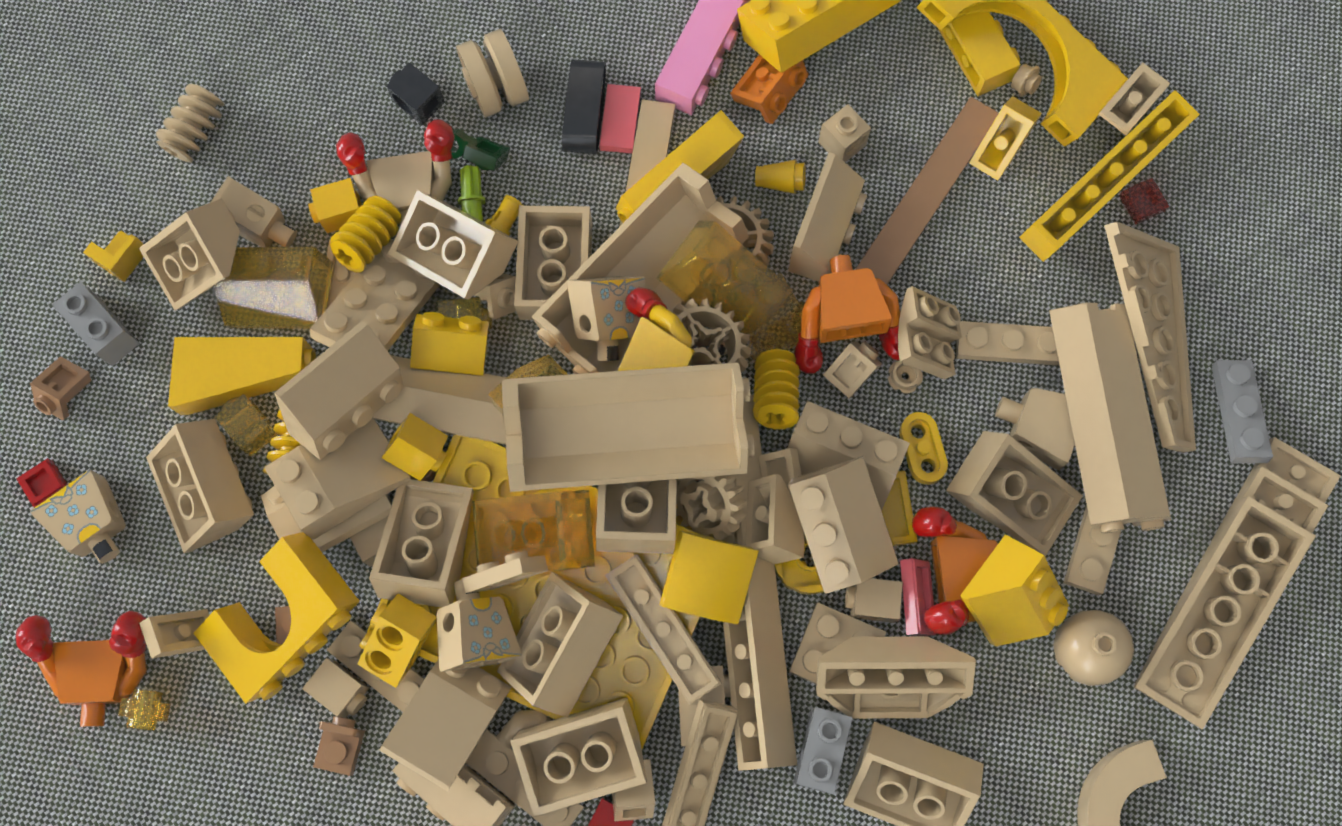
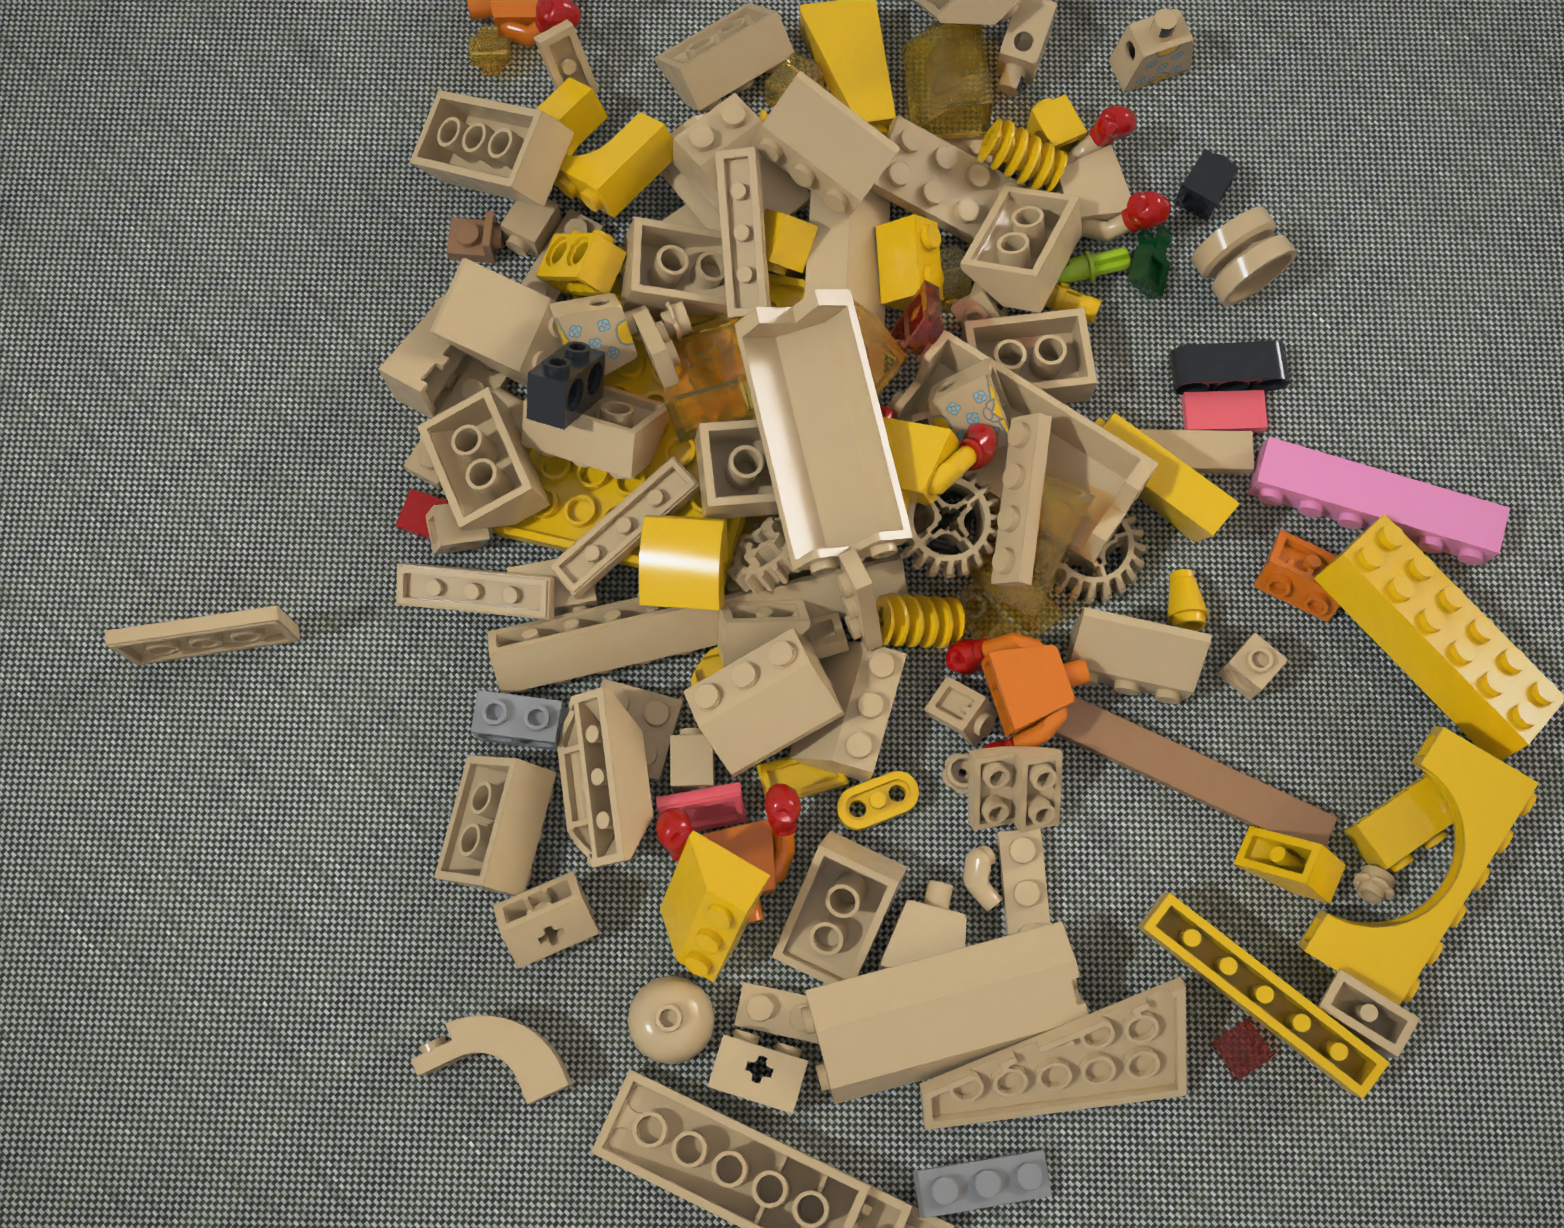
camera: 80 degrees right, 0 degrees up
(260, 712) = (492, 147): none -> tan brick
(277, 103) = (1152, 50): none -> tan torso
(406, 479) = (742, 230): none -> tan plate
(475, 554) = (676, 320): none -> tan plate
(517, 338) = (920, 321): none -> clear red wing
(530, 661) = (565, 385): none -> black brick
(699, 277) = (1021, 500): none -> tan plate
(773, 423) = (859, 600): none -> tan plate
(992, 377) = (977, 874): none -> tan arm
(1005, 745) = (545, 919): none -> tan brick
(1159, 566) = (732, 1077): none -> tan brick

